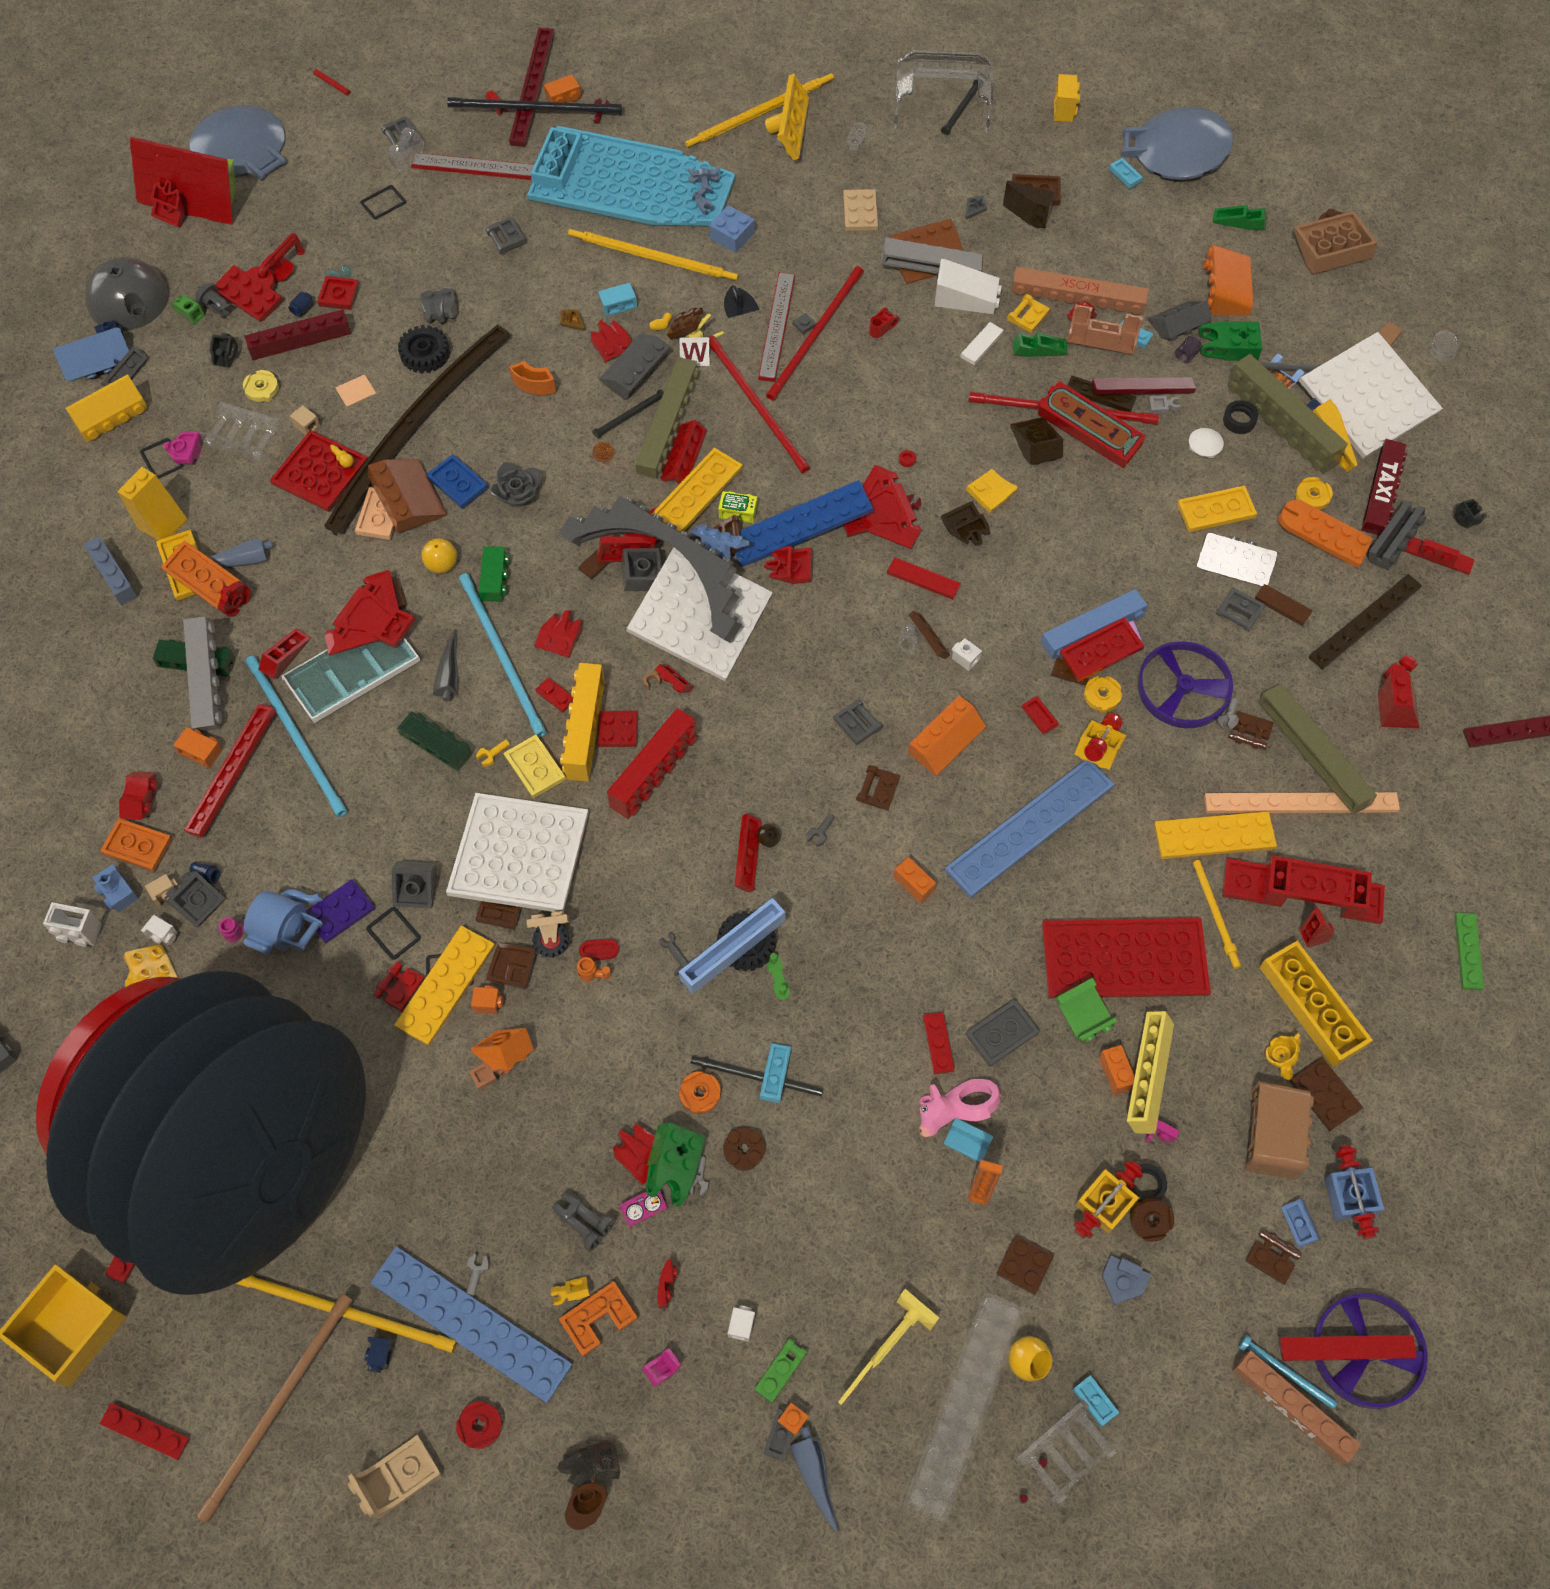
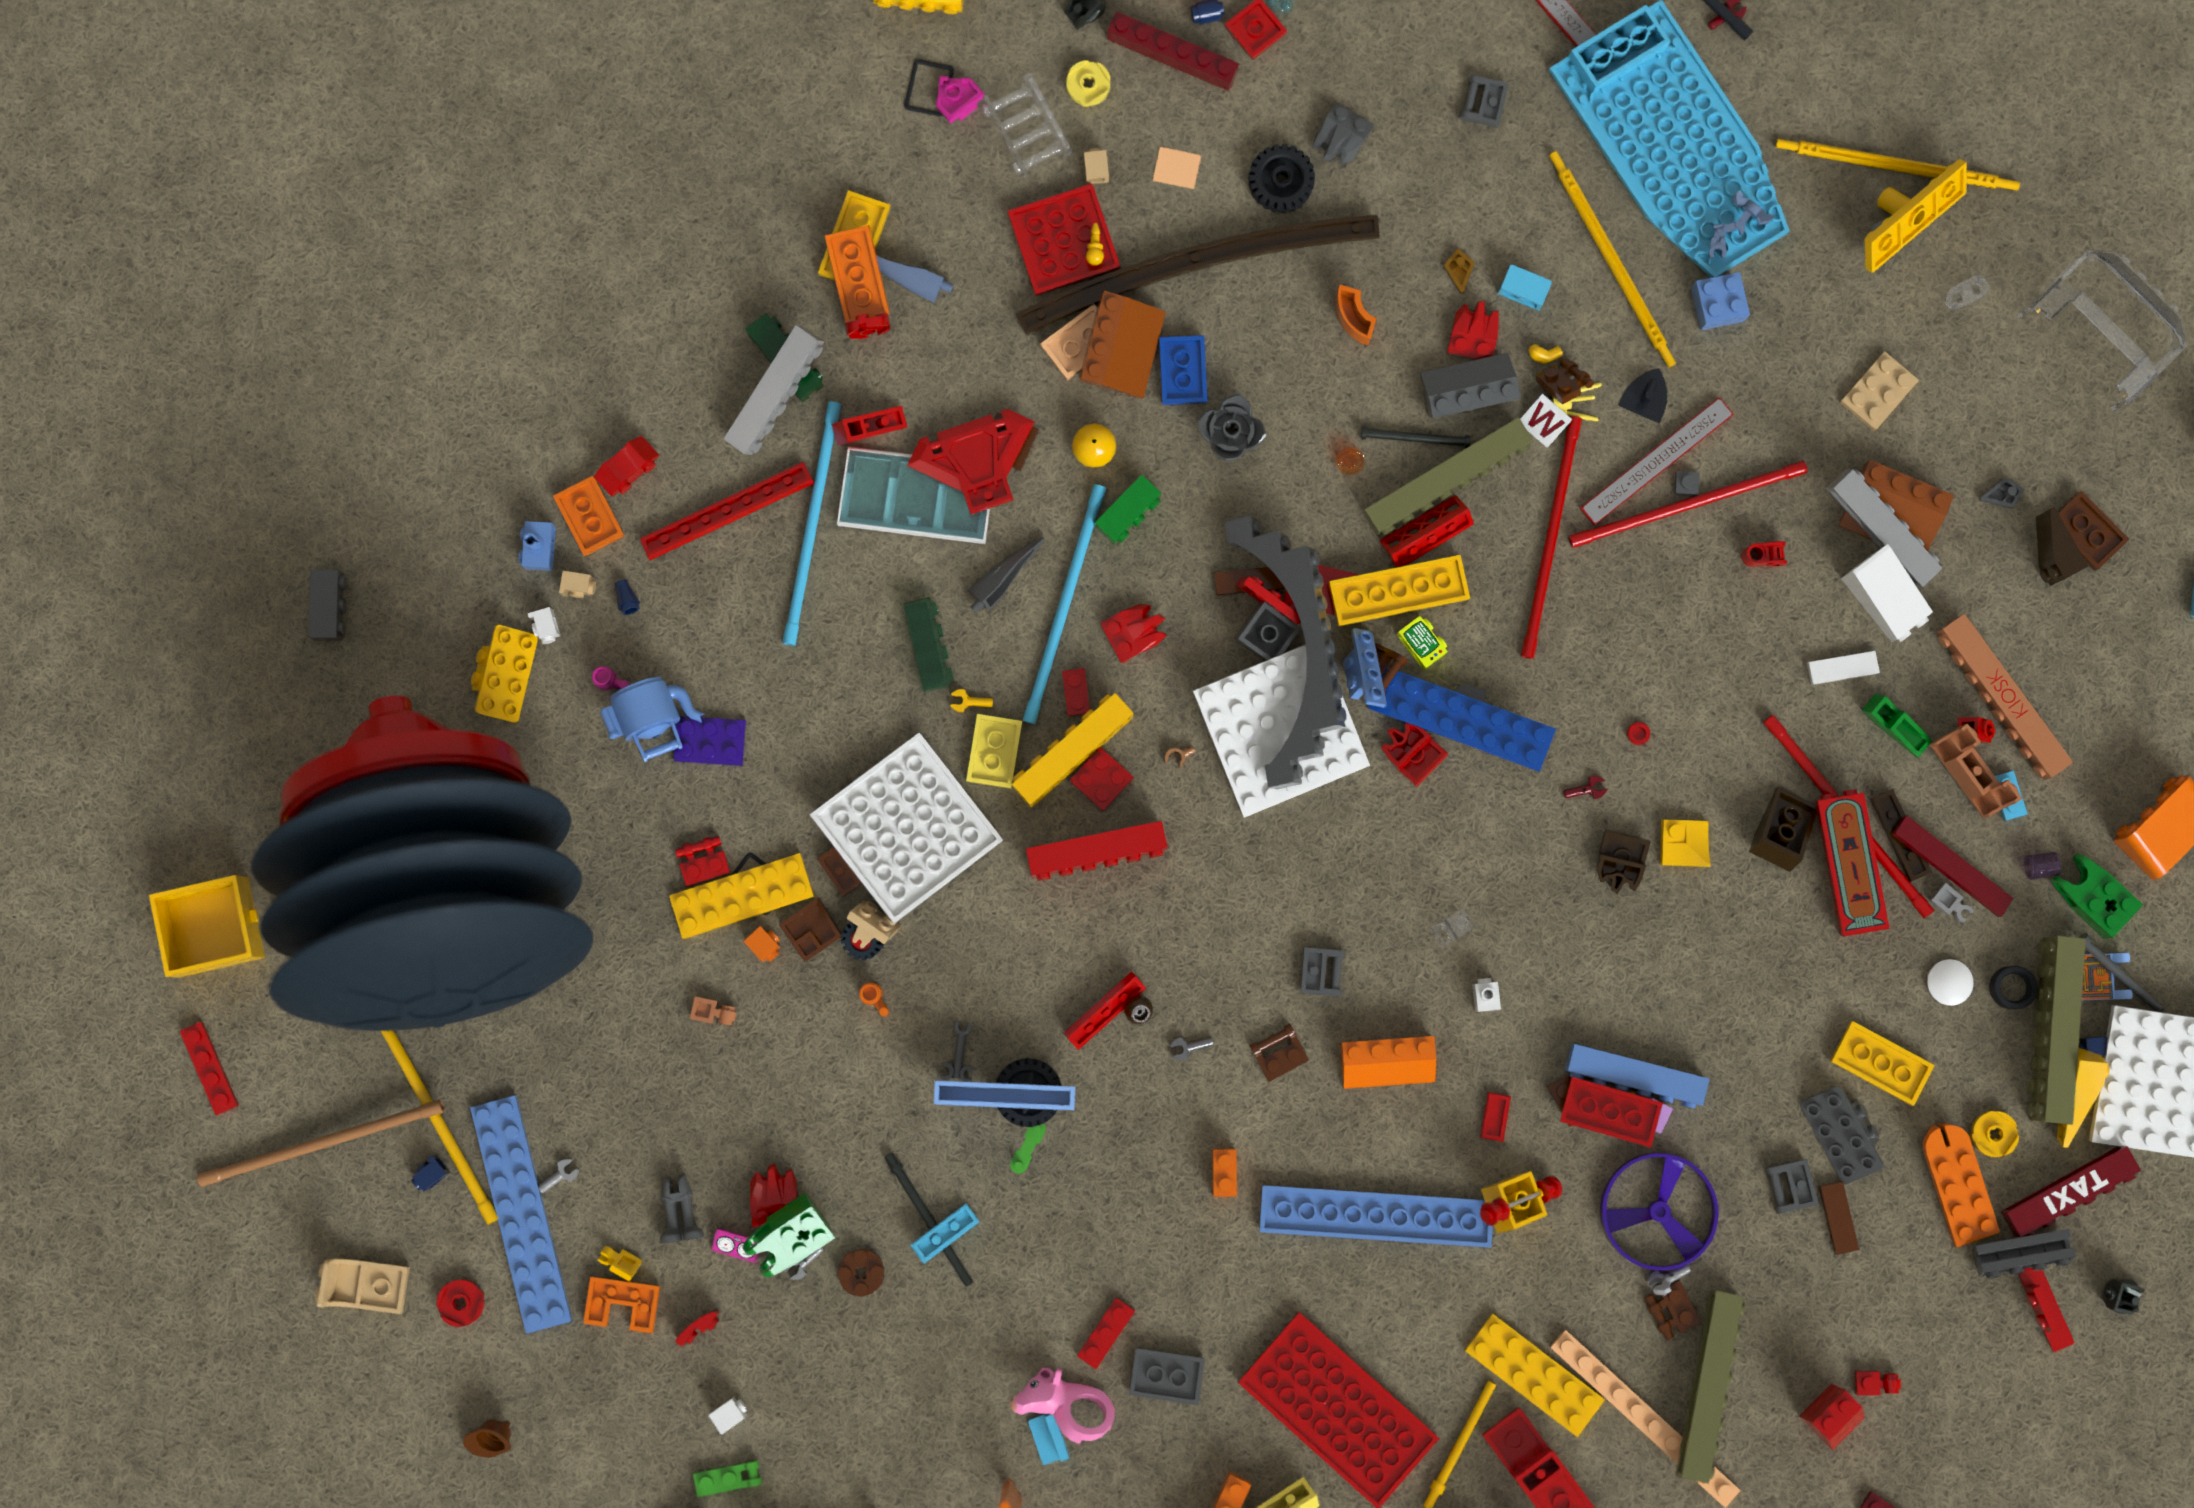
camera: 40 degrees right, 20 degrees up
(82, 932) = (479, 565): white piece -> none
(110, 570) = (781, 188): sand blue brick -> none
(151, 505) = (869, 156): yellow slope -> none
(194, 898) = (596, 618): dark grey plate -> none
(198, 747) = (715, 461): orange brick -> none
(379, 941) = (758, 803): black piece -> none
(413, 884) = (793, 774): dark grey slope -> none
(504, 1048) = (738, 1004): orange slope -> none
(591, 1462) = (518, 1416): clear smoke plate -> none
(599, 949) = (898, 982): red tile -> none
(662, 1367) = (636, 1390): dark pink bracket -> none
(670, 675) = (1196, 775): red plate -> none
(704, 1082) = (857, 1198): orange plate -> none
(890, 510) = (1564, 774): red plate -> none
(923, 578) = (1526, 878): red tile -> none
(929, 634) = (1471, 944): reddish brown tile -> none
(946, 129) = (2071, 367): pearl dark grey bar -> none
(1032, 317) = (1928, 682): yellow plate -> none
(1085, 1011) = (1254, 1426): bright green panel -> none
(1099, 702) = (1582, 1140): yellow plate -> none
(1181, 319) = (2073, 822): dark grey slope -> none
(1365, 622) = (1899, 1306): dark brown plate -> none

